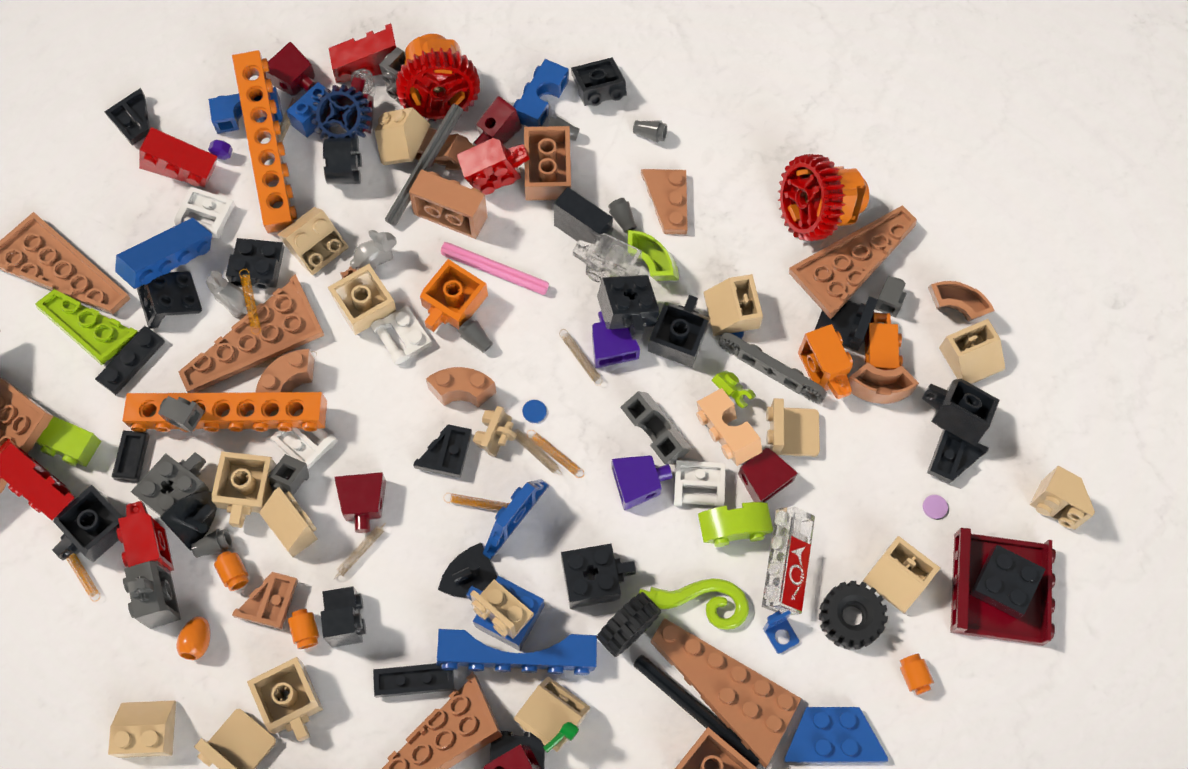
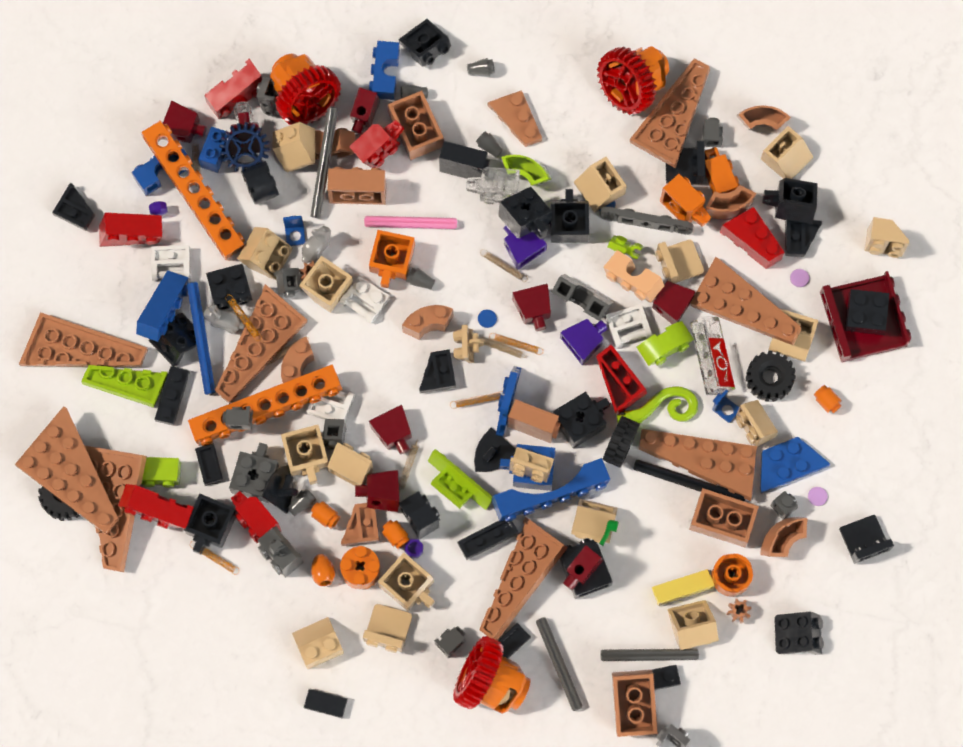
camera: 20 degrees left, 5 degrees up
(191, 306) = (201, 338): none -> blue axle
(229, 644) = (360, 556): none -> orange brick
(309, 567) = (381, 491): none -> dark red torso
(318, 656) = (414, 548): none -> dark purple tile
(327, 275) = (288, 277): none -> dark grey brick
(360, 221) = (294, 224): none -> blue bracket
(404, 596) = (456, 484): none -> lime bracket
(531, 555) = (533, 421): none -> nougat brick
(595, 416) = (533, 305): none -> dark red torso
(660, 548) = (620, 381): none -> red wedge
(811, 668) = (756, 423): none -> tan slope
(845, 505) = (735, 300): none -> nougat wing
(896, 435) = (754, 237): none -> red wedge

